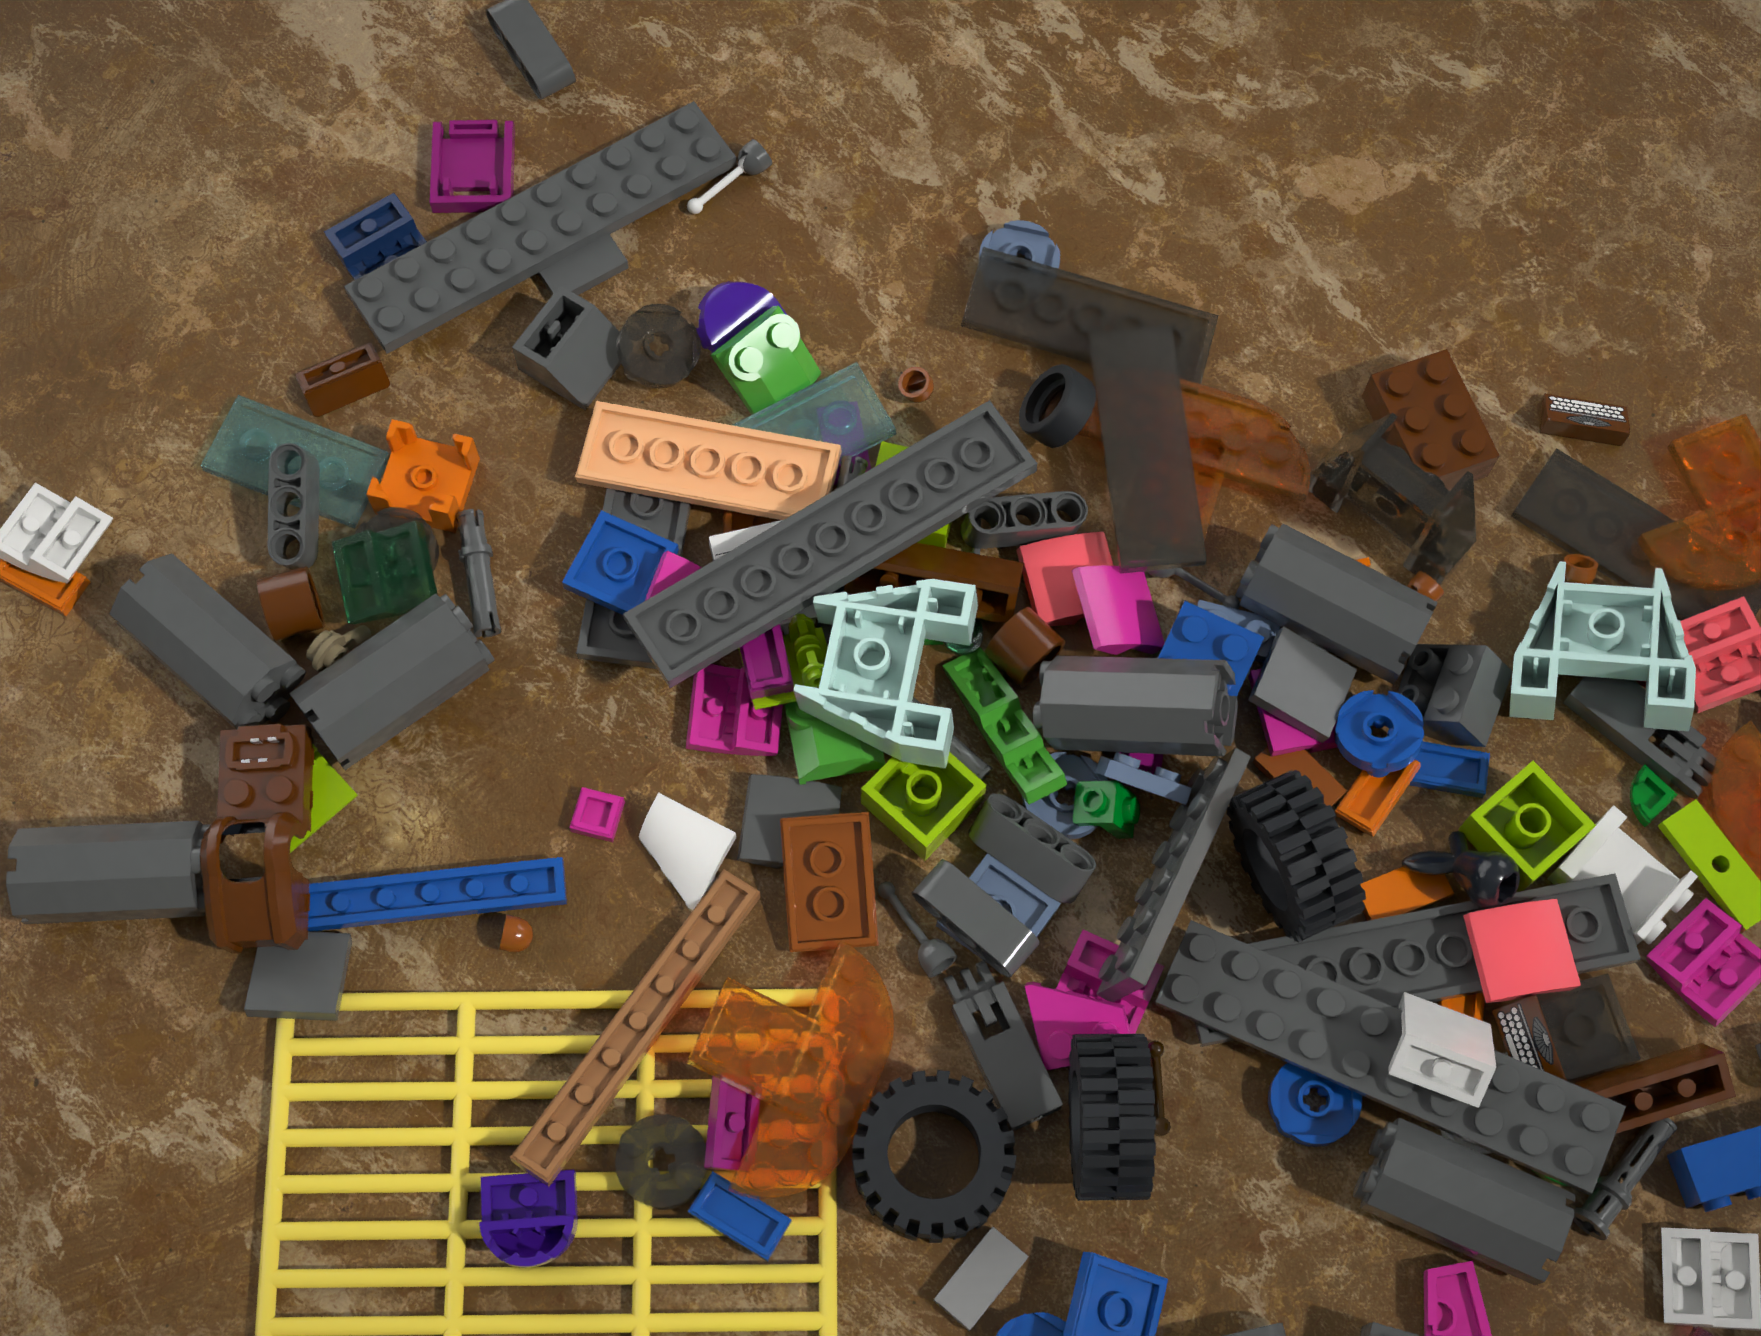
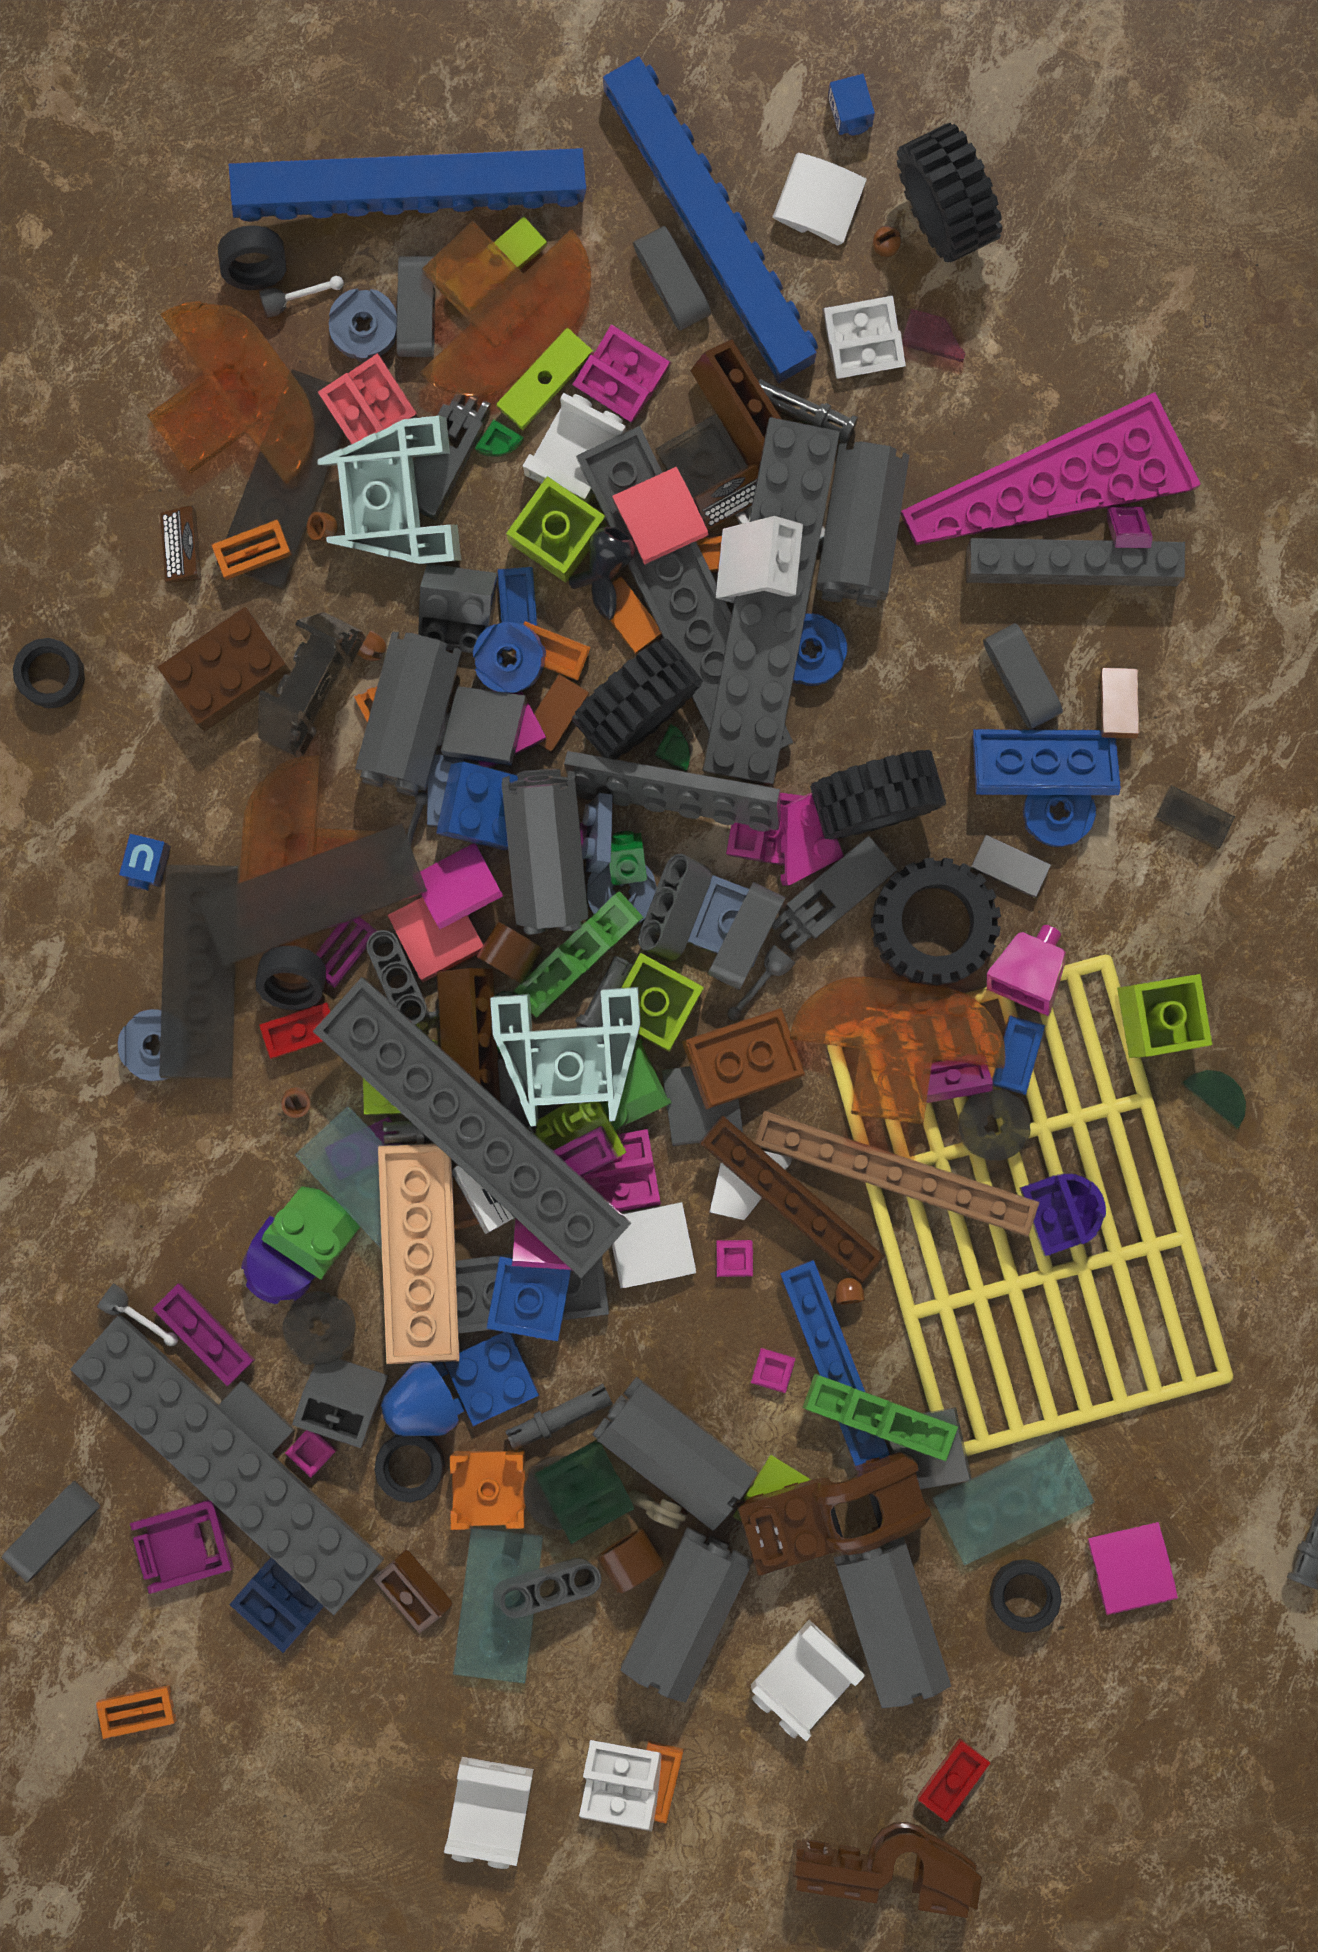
camera: 100 degrees left, 15 degrees up
(58, 1027) = (1052, 1604): none -> black tyre
(71, 1185) = (1132, 1568): none -> dark pink slope
(76, 395) = (488, 1812): none -> white panel
(87, 763) = (805, 1680): none -> white panel
(205, 1065) = (1013, 1500): none -> clear light blue tile
(314, 113) = (166, 1705): none -> orange tile
(353, 925) = (880, 1417): none -> bright green slope
(453, 824) = (773, 1370): none -> dark pink tile
(478, 375) = (402, 1493): none -> black tyre
(523, 309) = (311, 1452): none -> dark pink tile
(540, 419) = (421, 1402): none -> blue piece
(545, 515) = (491, 1378): none -> blue plate
(640, 723) = (654, 1246): none -> white slope
(643, 893) = (791, 1199): none -> reddish brown tile
(689, 236) = (203, 1334): none -> magenta plate
(842, 1261) = (1029, 970): none -> dark pink torso
(999, 387) = (293, 1031): none -> red plate
(1062, 484) = (355, 955): none -> magenta tile
(1162, 1124) = (804, 777): dark brown hinge -> none
(1226, 904) = (674, 749): none -> green tile
(1227, 294) = (144, 862): none -> blue brick
(1467, 223) = (29, 654): none -> black tyre
(1570, 519) = (254, 563): none -> orange tile

